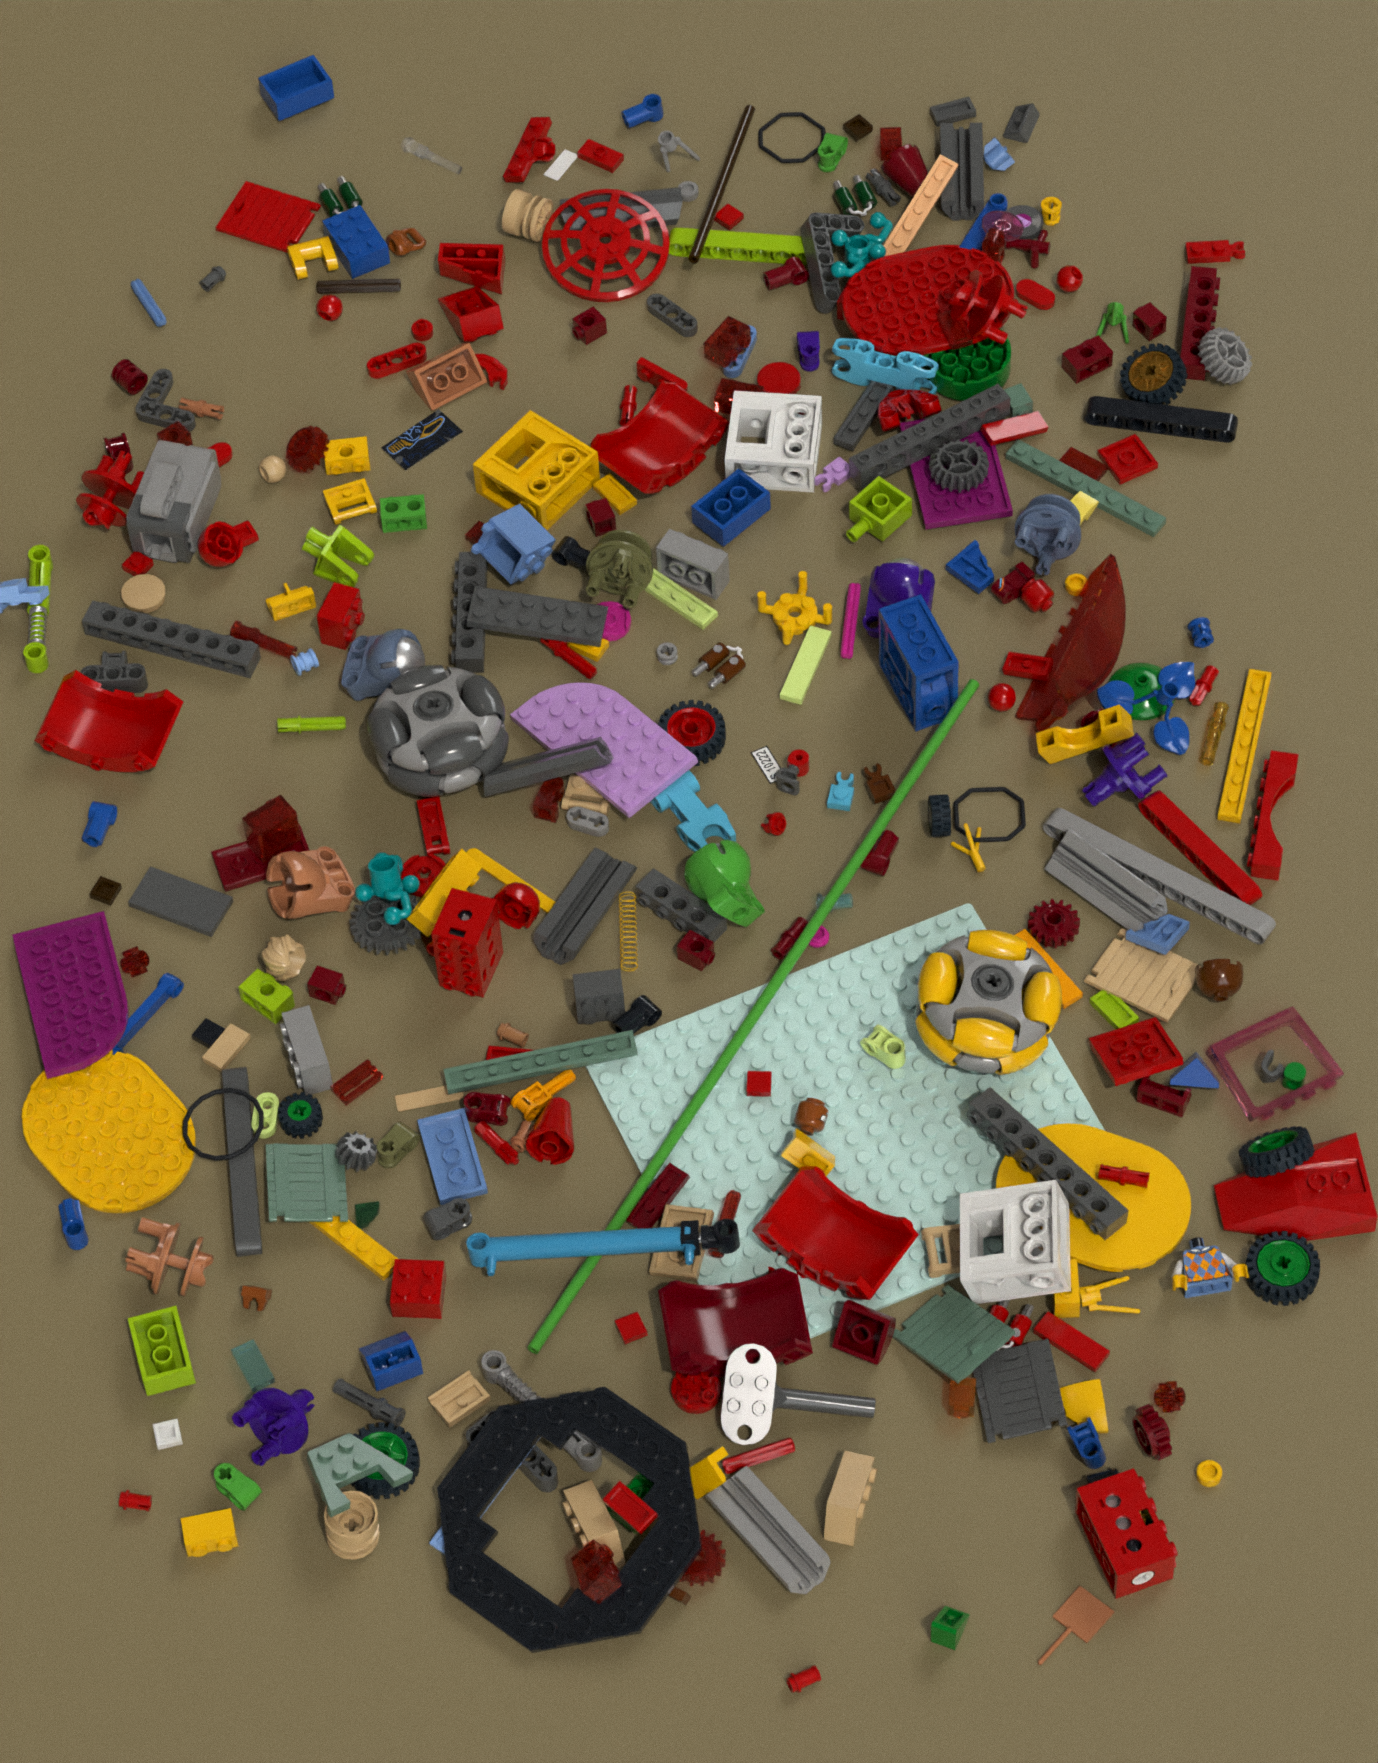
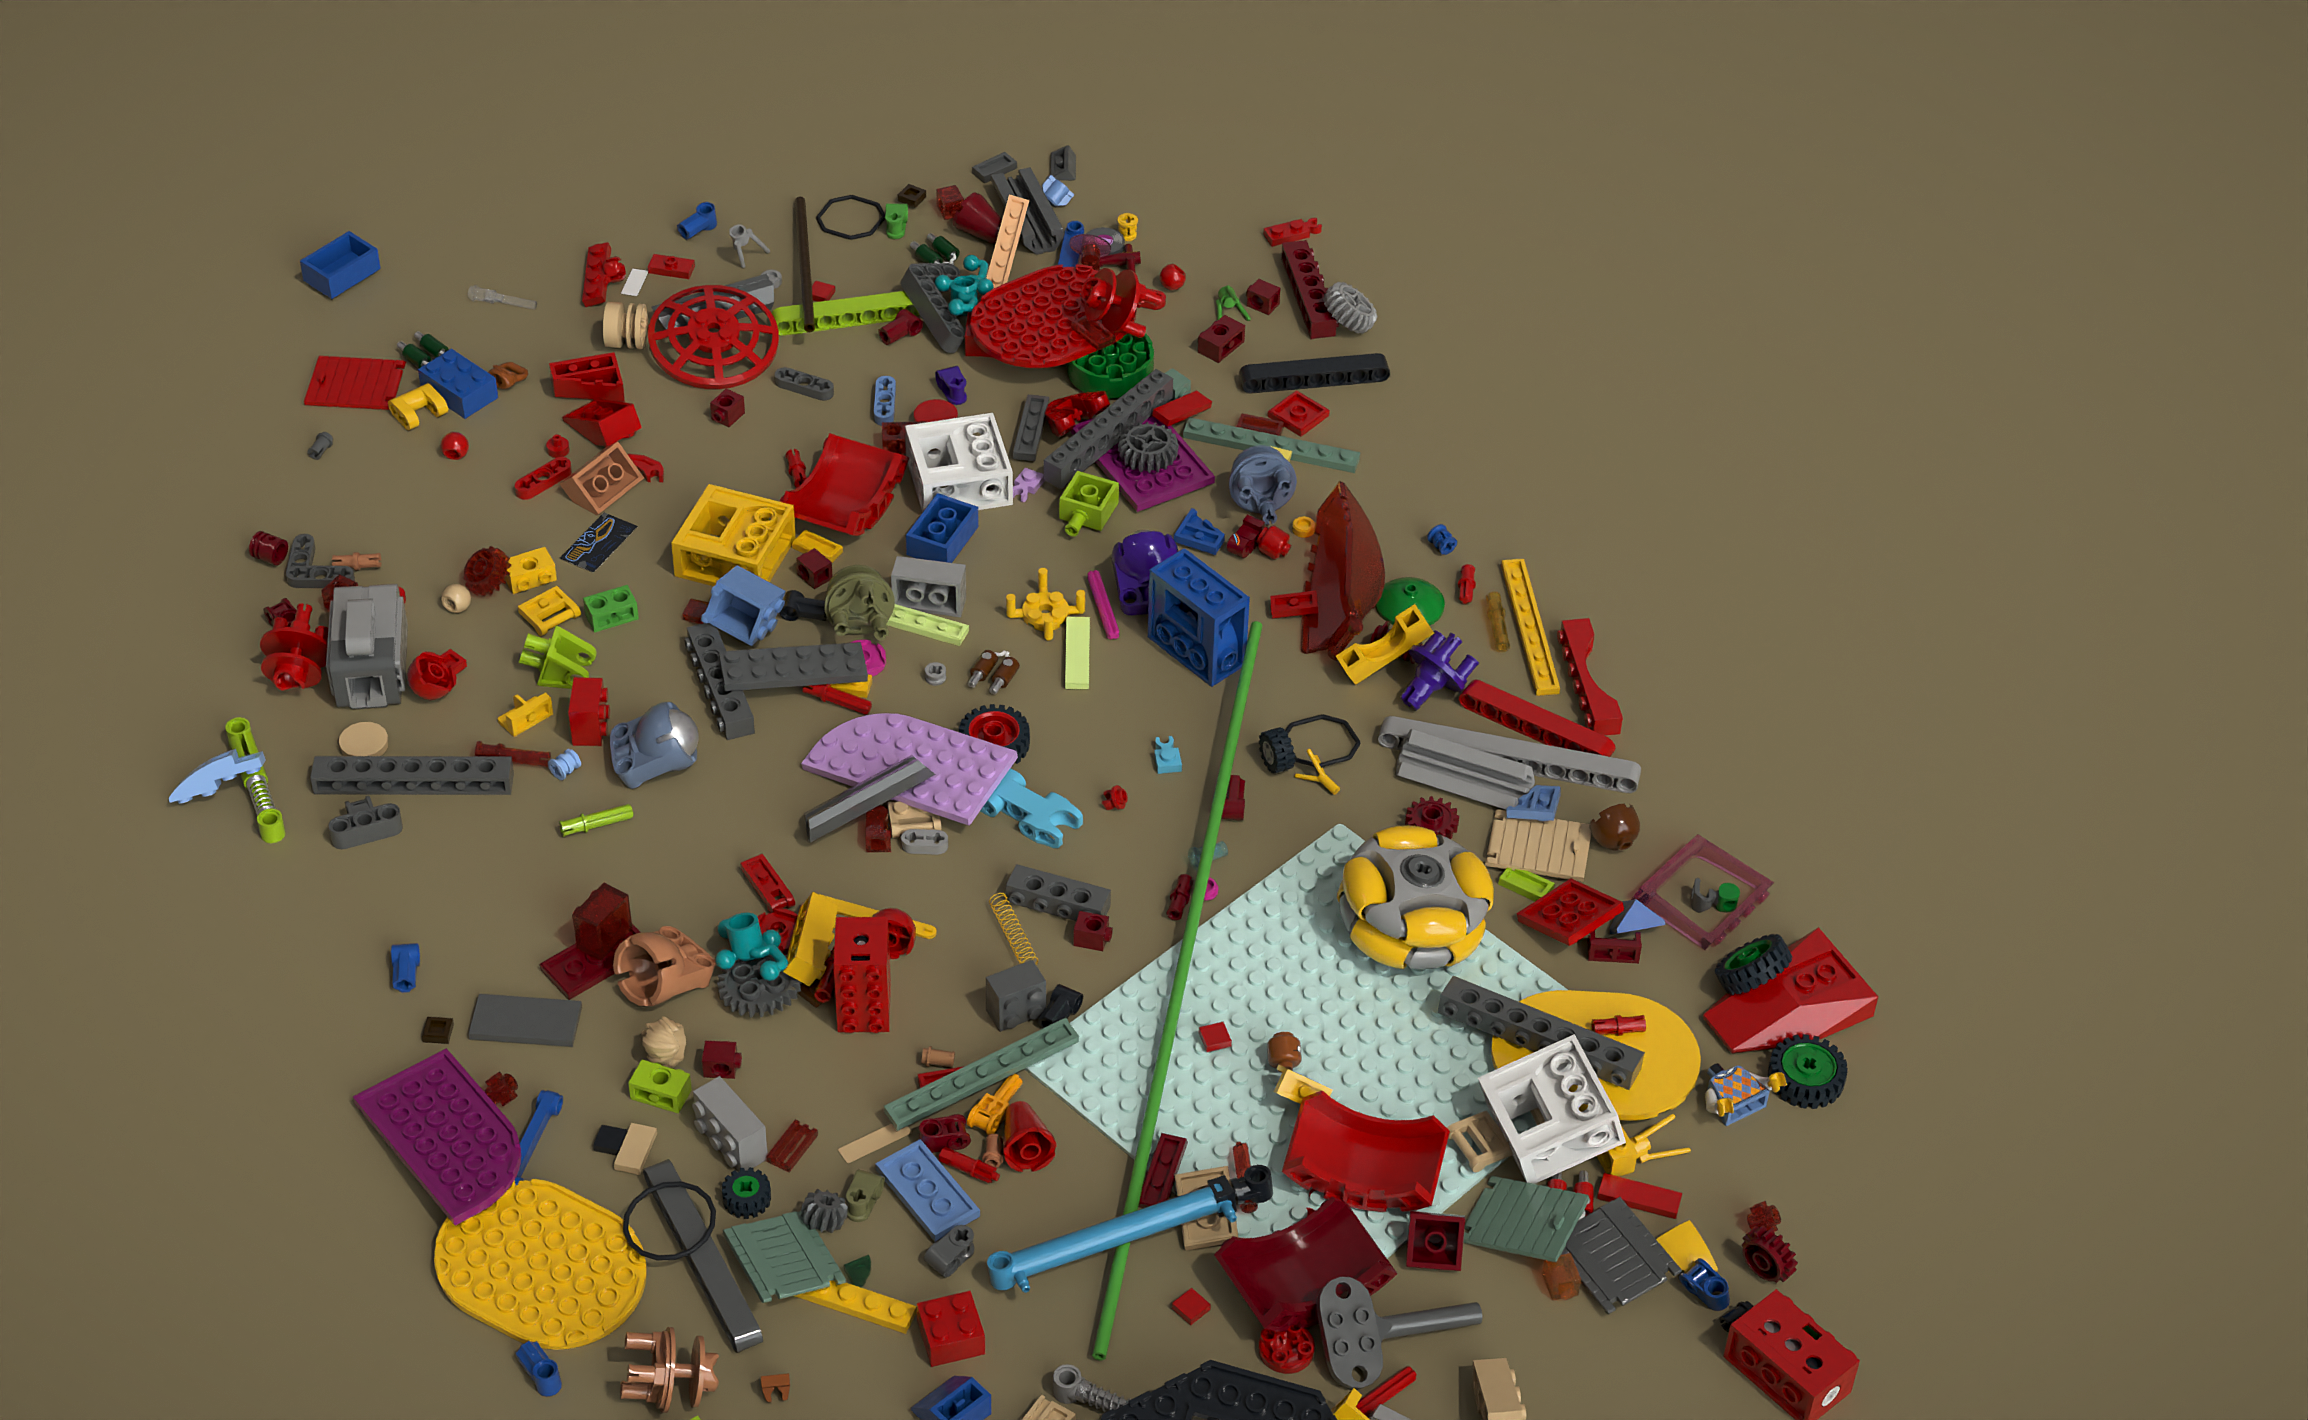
camera: 25 degrees left, 10 degrees down
(107, 727) = (381, 871): red panel -> none
(137, 564) = (345, 716): red plate -> none
(148, 303) = (260, 480): medium blue axle -> none
(270, 1115) = (712, 1189): yellowish green plate -> none
(356, 286) = (476, 422): dark brown axle -> none
(438, 730) = (741, 788): piece -> none
(582, 906) = (957, 920): dark grey piece -> none
(655, 375) = (813, 435): red plate -> none
(722, 878) = (1092, 853): bright green piece -> none
(727, 342) = (873, 391): clear red brick -> none
(766, 763) = (1081, 749): white sticker -> none
(796, 767) = (1112, 746): leg -> none
(869, 365) = (1024, 382): medium azure piece -> none
(879, 786) = (1202, 741): reddish brown plate -> none
(882, 1046) = (1327, 969): yellowish green piece -> none
(883, 187) = (959, 239): dark grey pin -> none
(1001, 697) = (1283, 636): red piece -> none
(1153, 374) = (1292, 335): wheel -> none
(1176, 682) = (1445, 589): blue plant -> none
(1209, 1473) = (1835, 1281): yellow tile -> none

